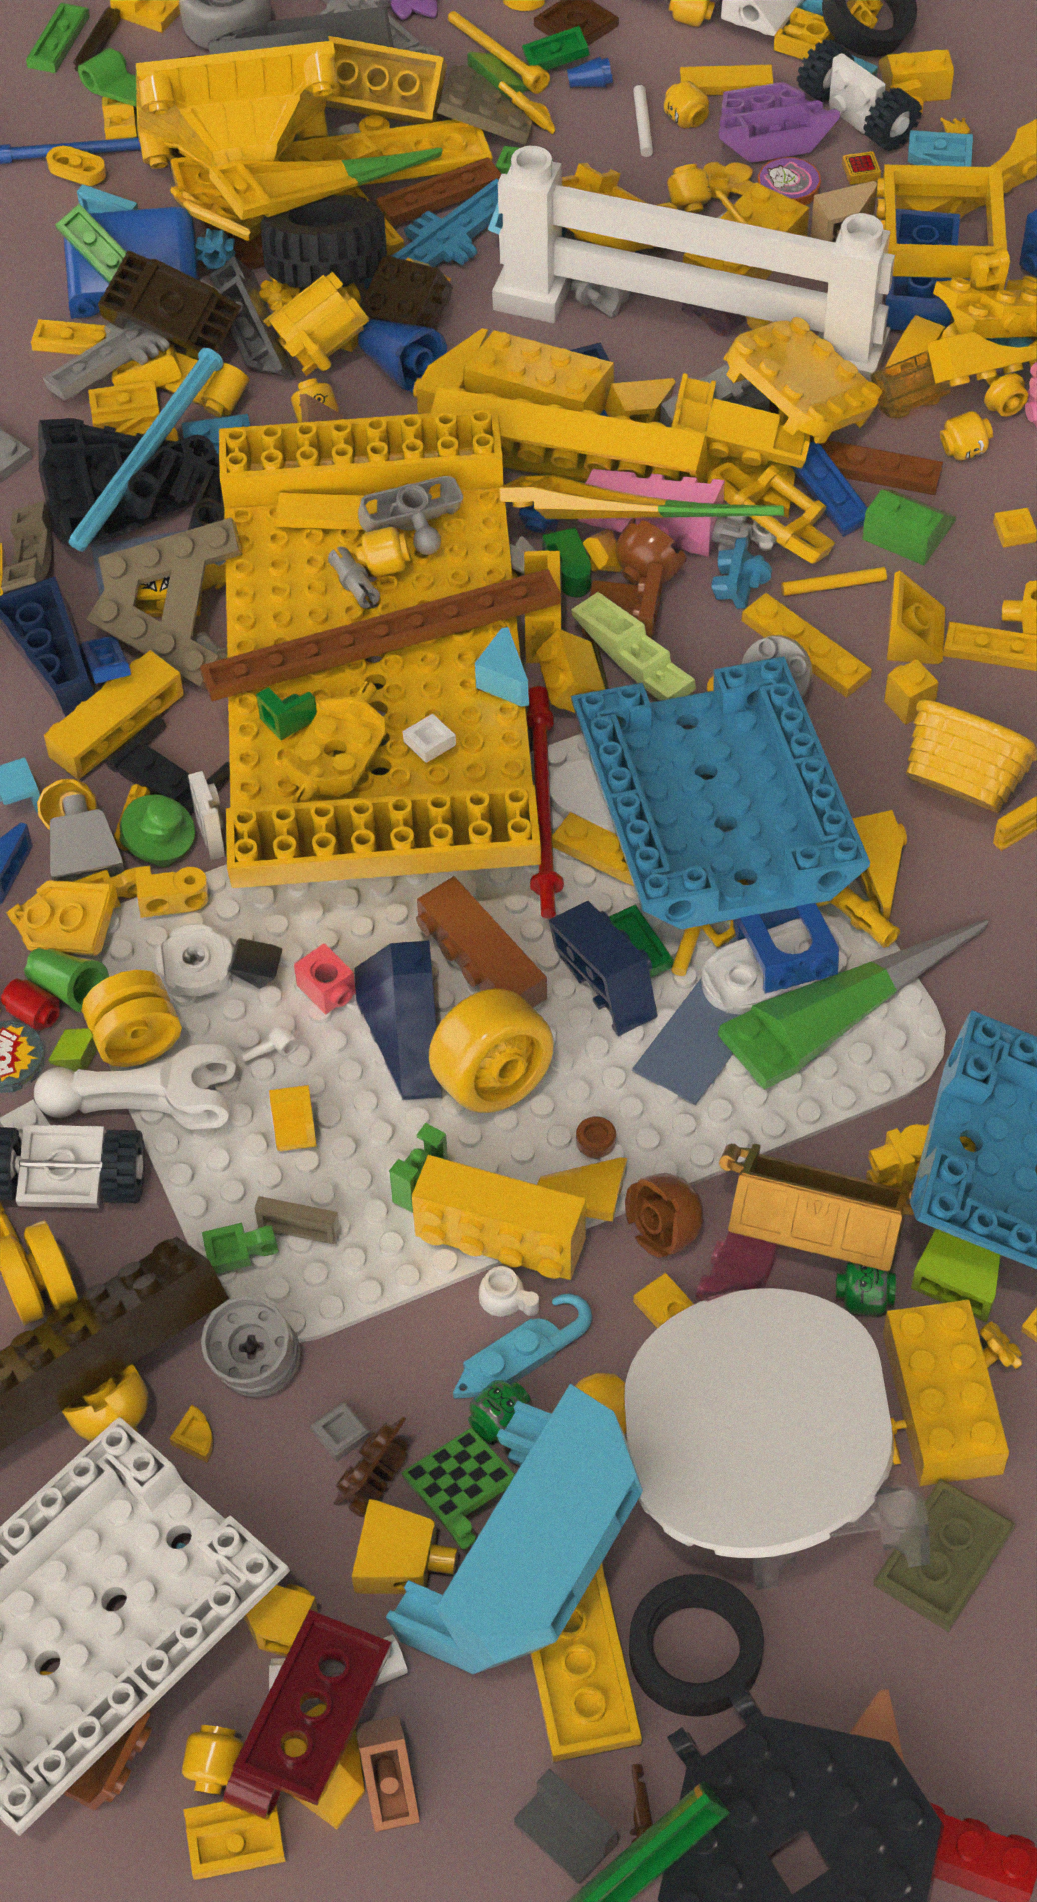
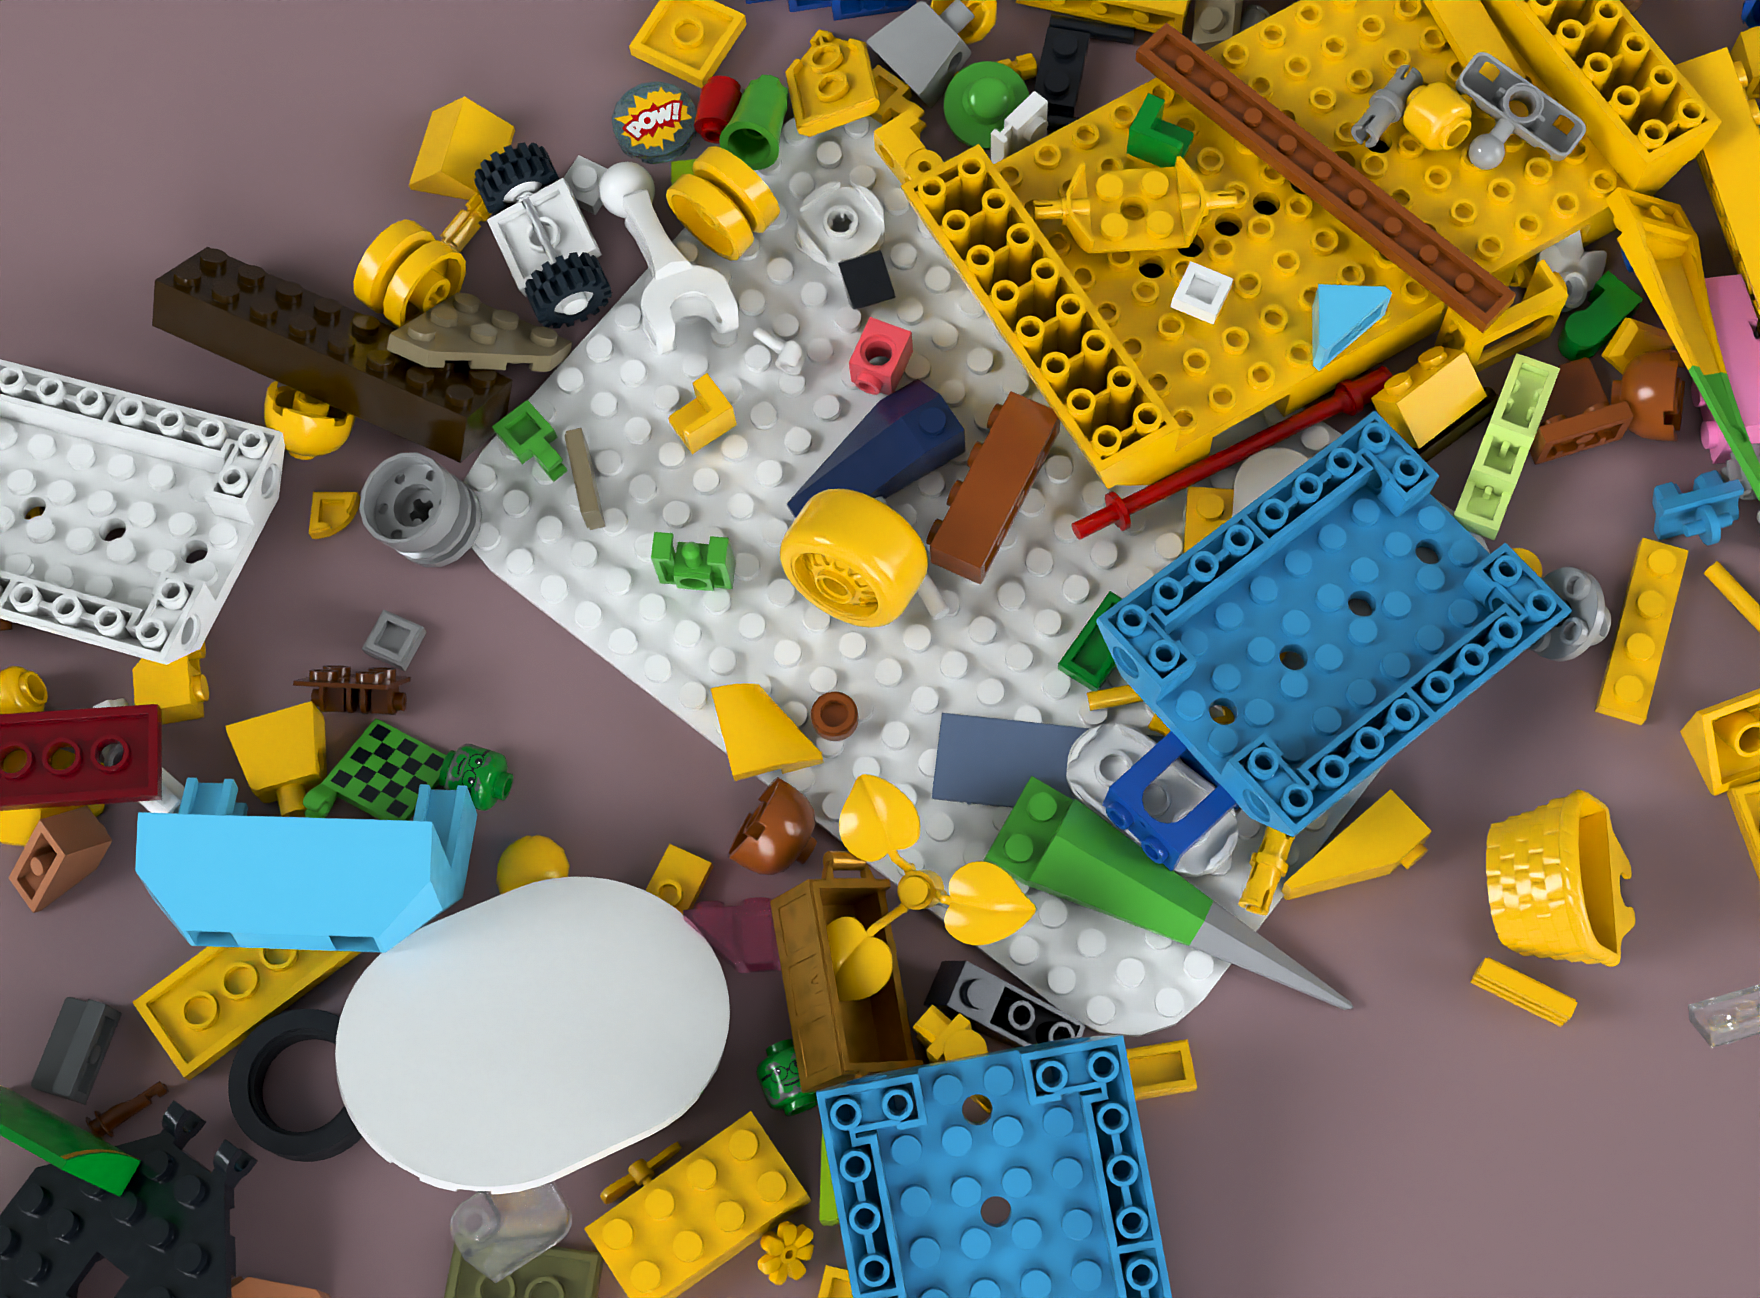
camera: 70 degrees right, 15 degrees up
(118, 1250) = (477, 333): none -> dark tan plate
(499, 1217) = (665, 666): yellow brick -> none
(503, 1294) = (616, 717): white piece -> none
(522, 1349) = (560, 766): medium azure plate -> none
(608, 962) = (1042, 619): dark blue wedge -> none
(716, 1112) = (982, 898): none -> yellow plant
(868, 1127) = (998, 1007): none -> black slope
(908, 686) = (1633, 777): yellow brick -> none

